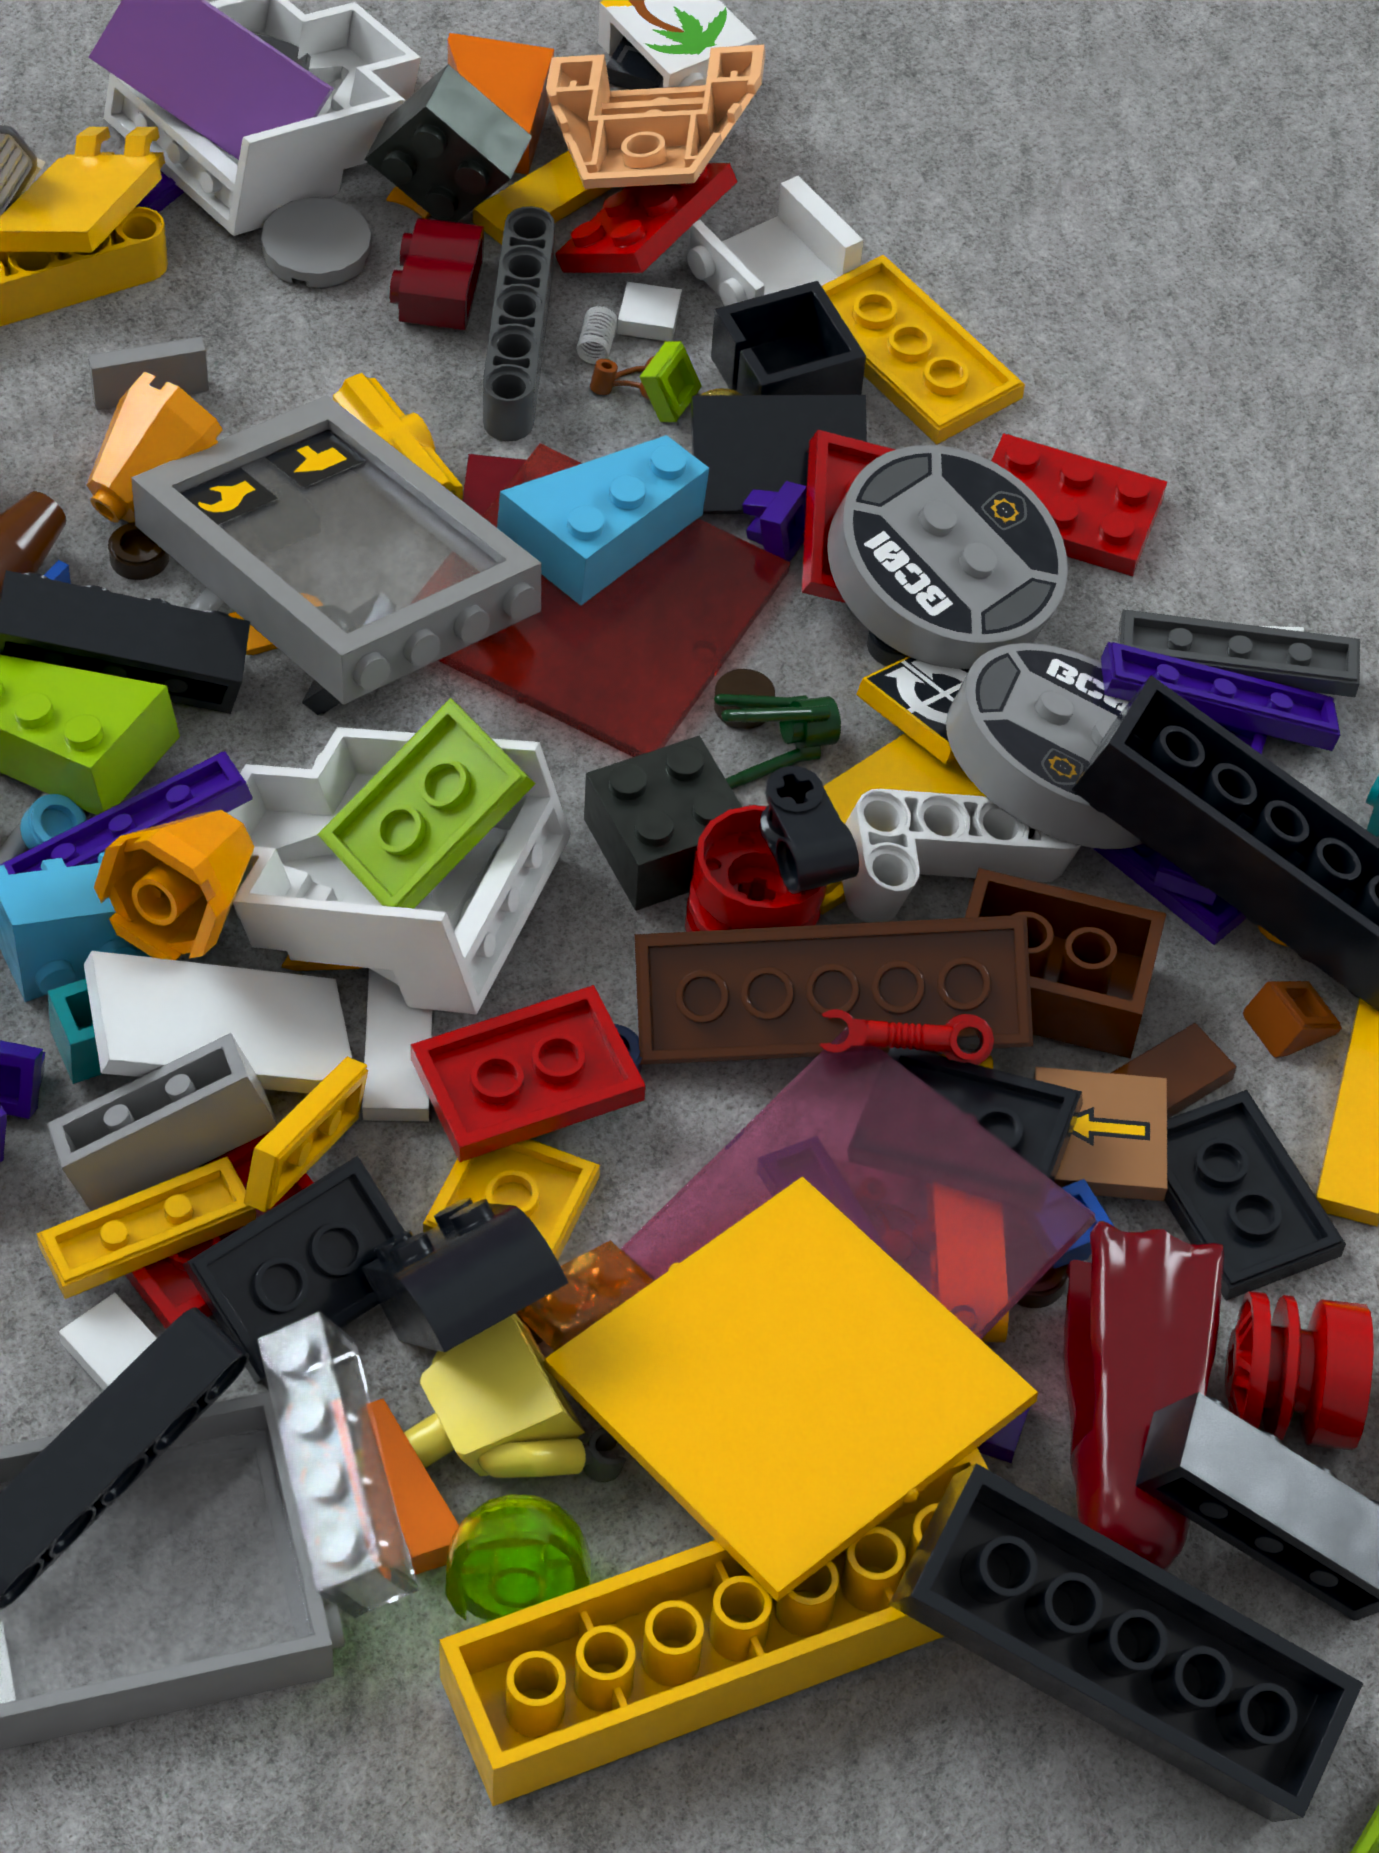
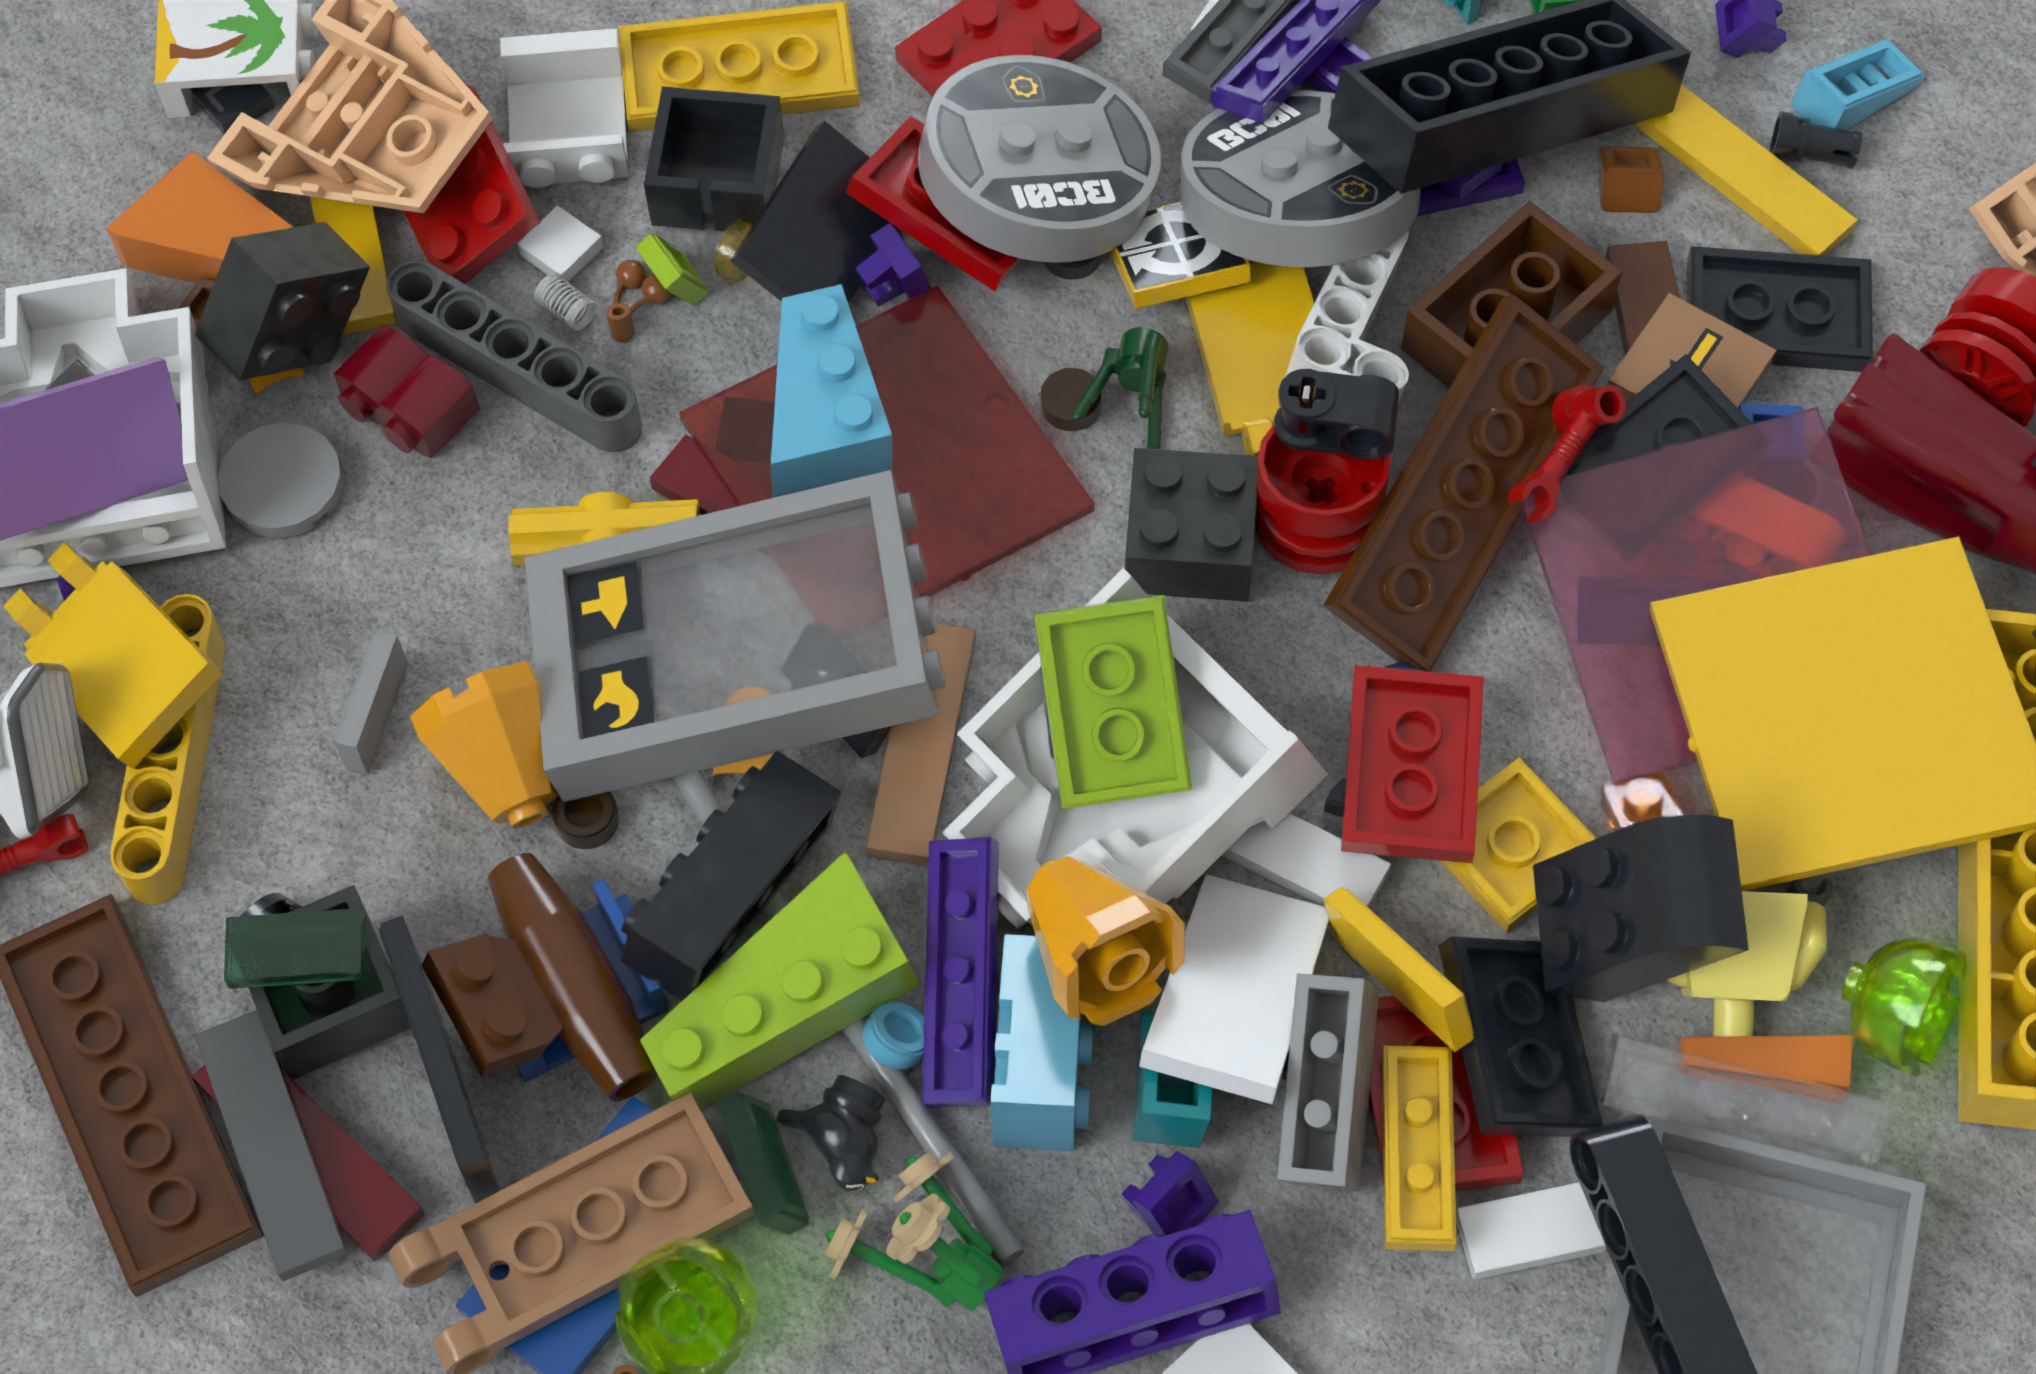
camera: 55 degrees left, 10 degrees up
(302, 737) = (920, 761): none -> medium nougat tile

